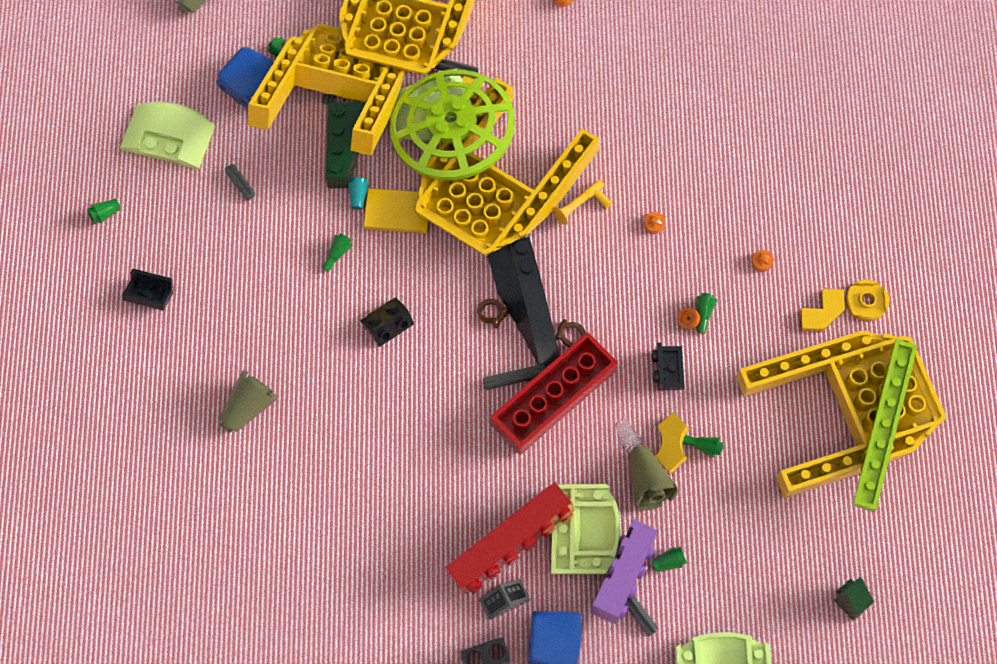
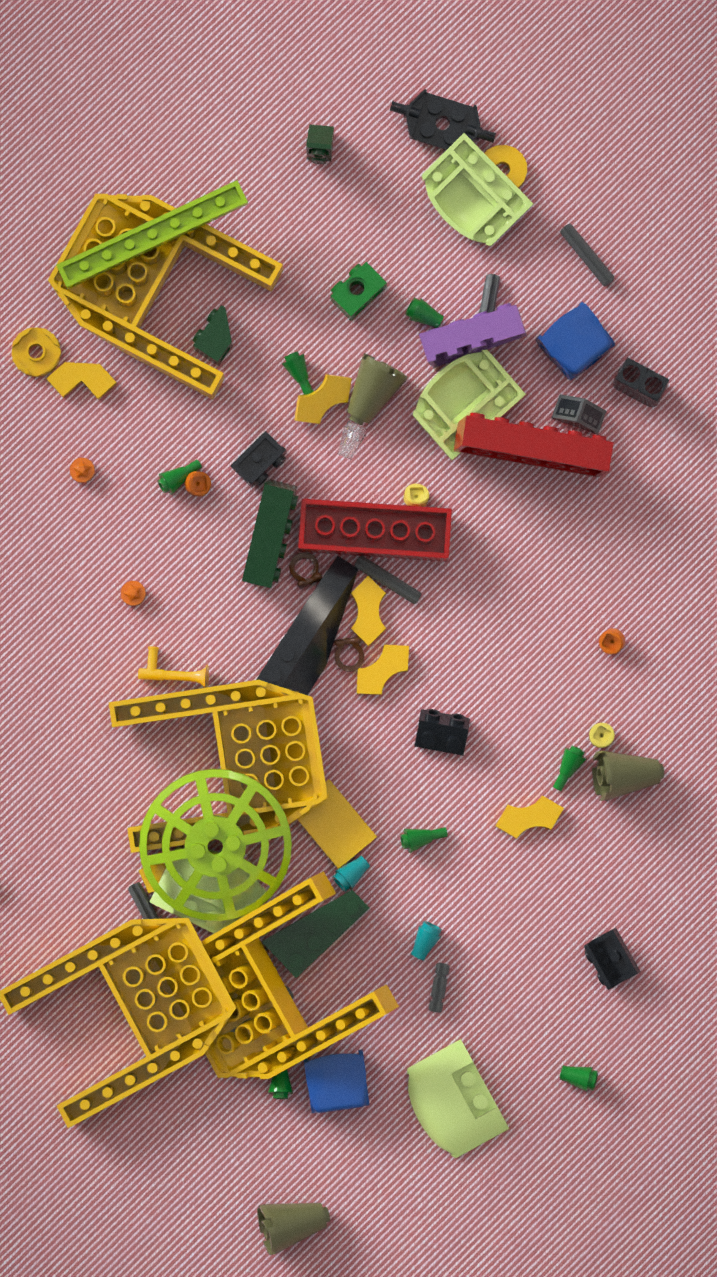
camera: 135 degrees left, 15 degrees up
(275, 200) = (425, 940): none -> teal cone
(277, 333) = (540, 814): none -> yellow tile
(285, 413) = (601, 735): none -> light yellow tile
(288, 380) = (571, 762): none -> green cone
(336, 476) = (612, 641): none -> orange tile
(461, 332) = (373, 678): none -> yellow tile
(499, 341) = (368, 622): none -> yellow tile
(551, 442) = (416, 495): none -> light yellow tile
(616, 331) = (269, 533): none -> dark green wedge
(719, 542) = (353, 304): none -> green brick
(776, 413) = (215, 339): none -> dark green slope

